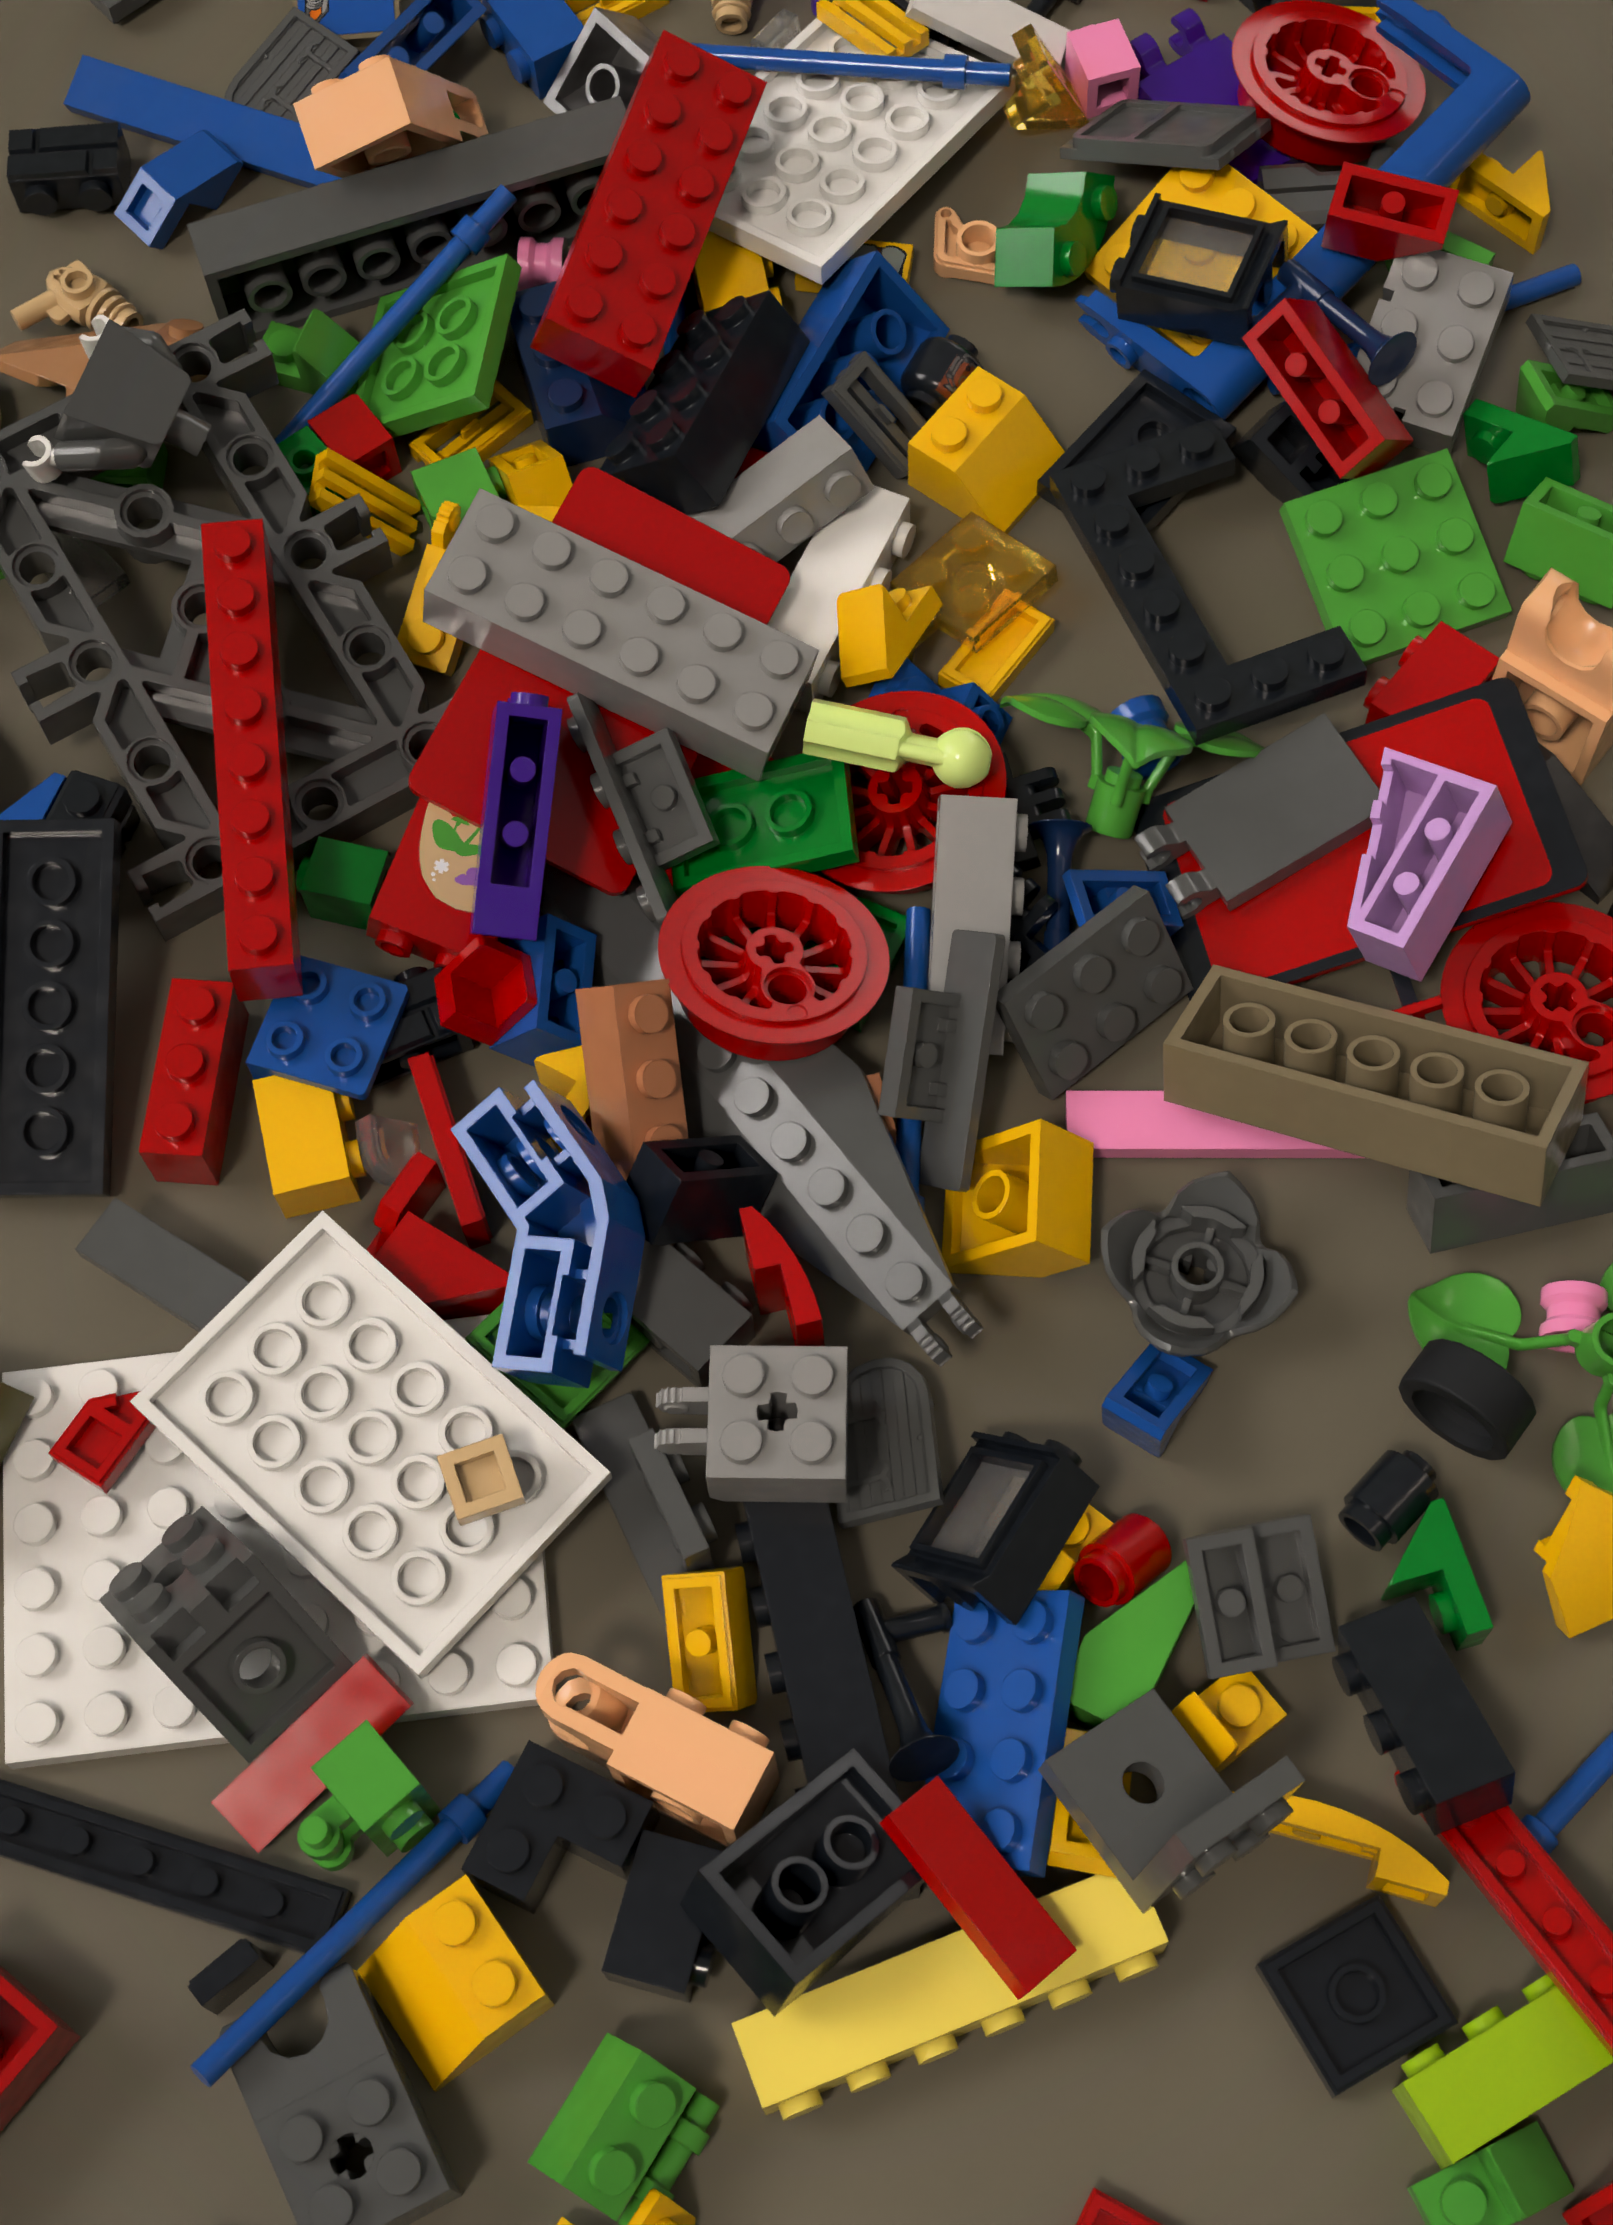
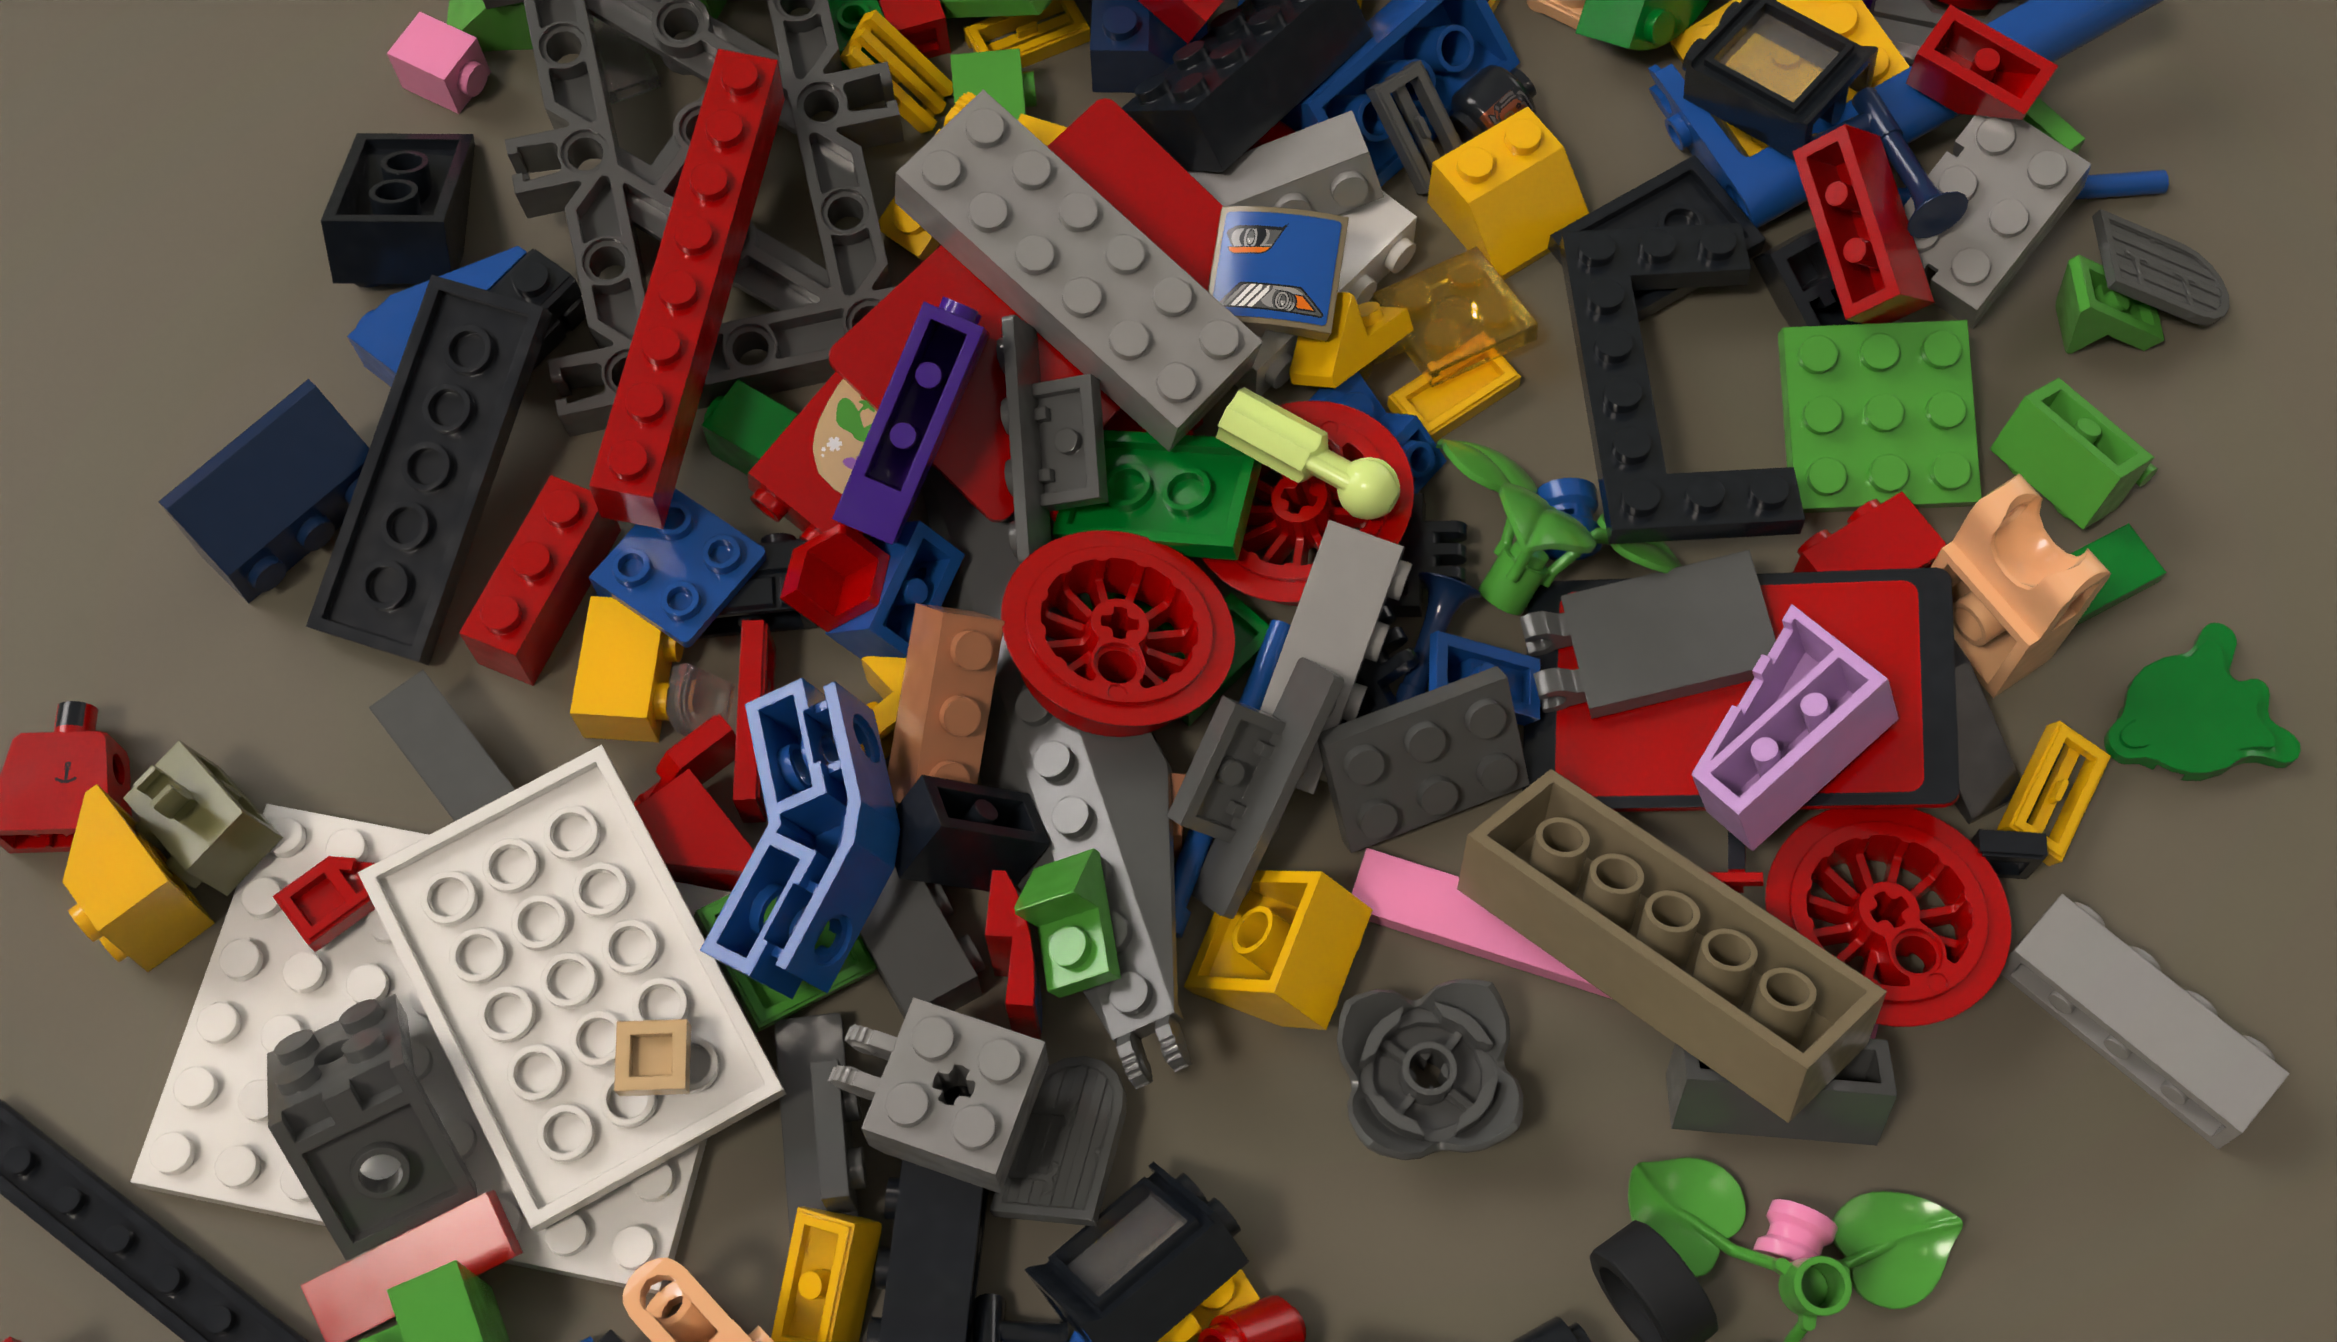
camera: 15 degrees right, 0 degrees up
(533, 475) = (1064, 90): yellow slope -> none
(805, 578) = (1279, 268): none -> slope
(829, 1235) = (1073, 923): none -> bright green slope
(1154, 1398) = (1343, 1185): blue slope -> none
(1508, 201) = (2117, 90): yellow slope -> none
(1518, 451) = (2041, 343): green slope -> none

